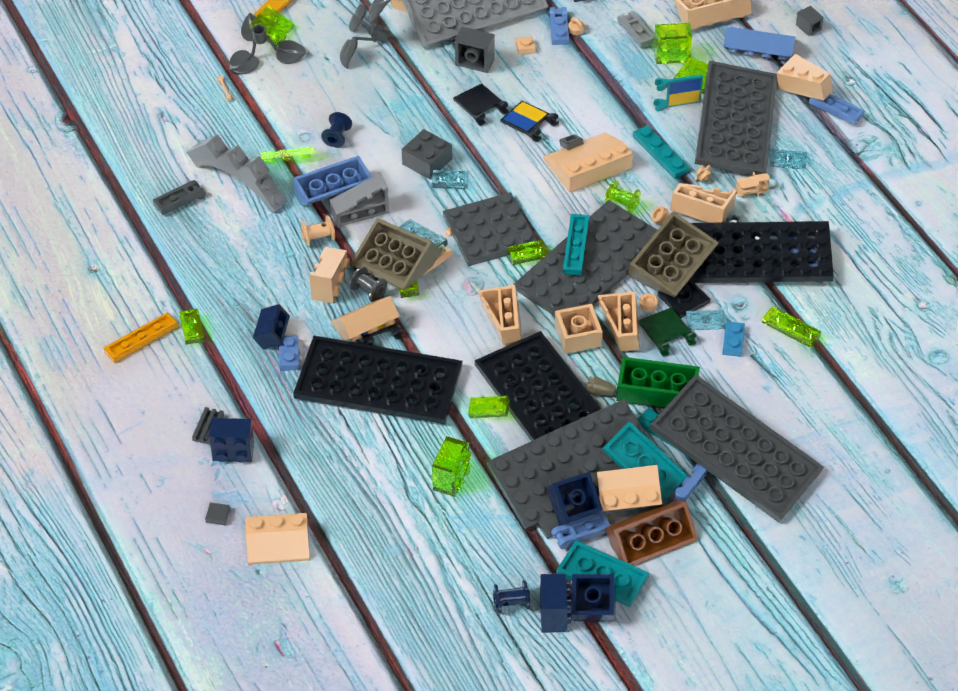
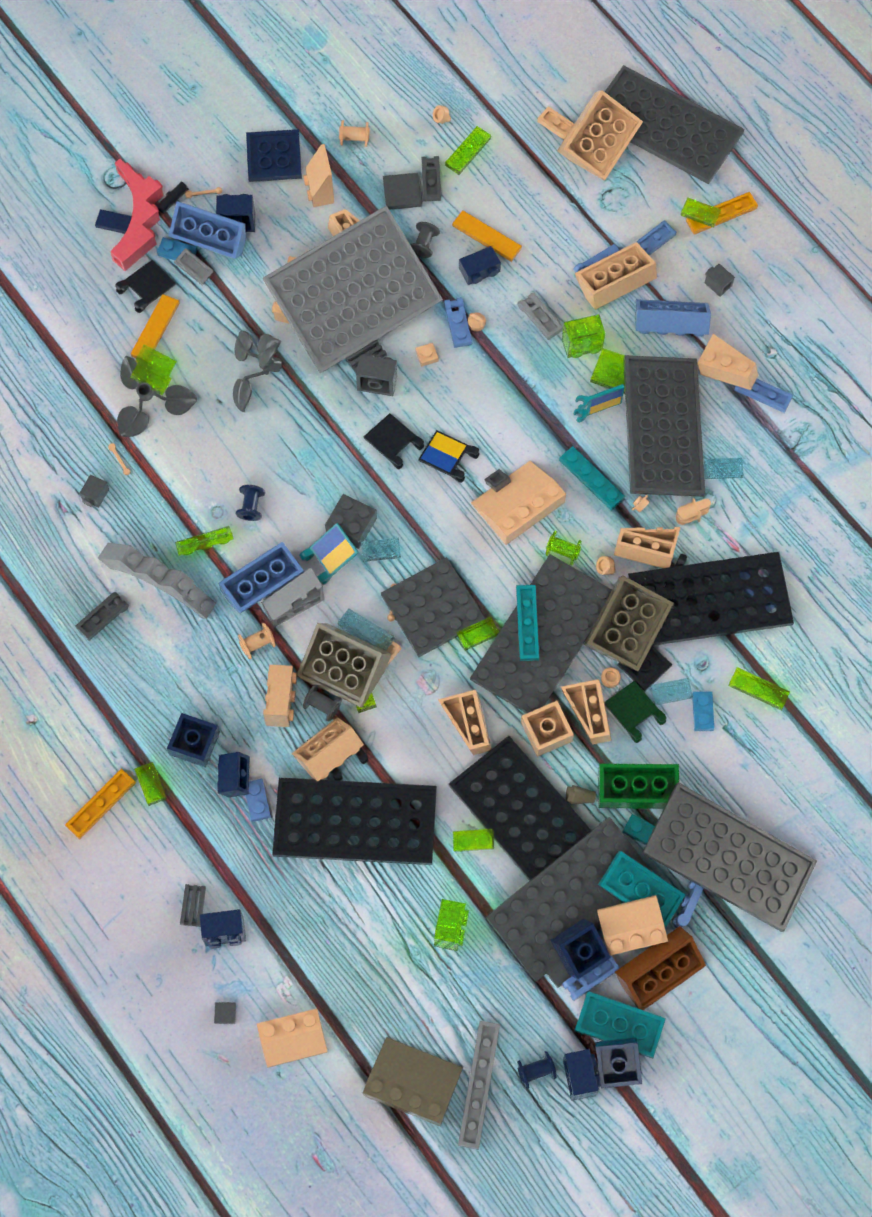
camera: 10 degrees left, 20 degrees up
(196, 105) = (94, 491): none -> dark grey brick
(240, 295) = (193, 740): none -> dark blue brick
(385, 593) = (412, 1081): none -> dark tan slope
(403, 172) = (332, 551): none -> flag
(451, 603) = (479, 1085): none -> light grey plate

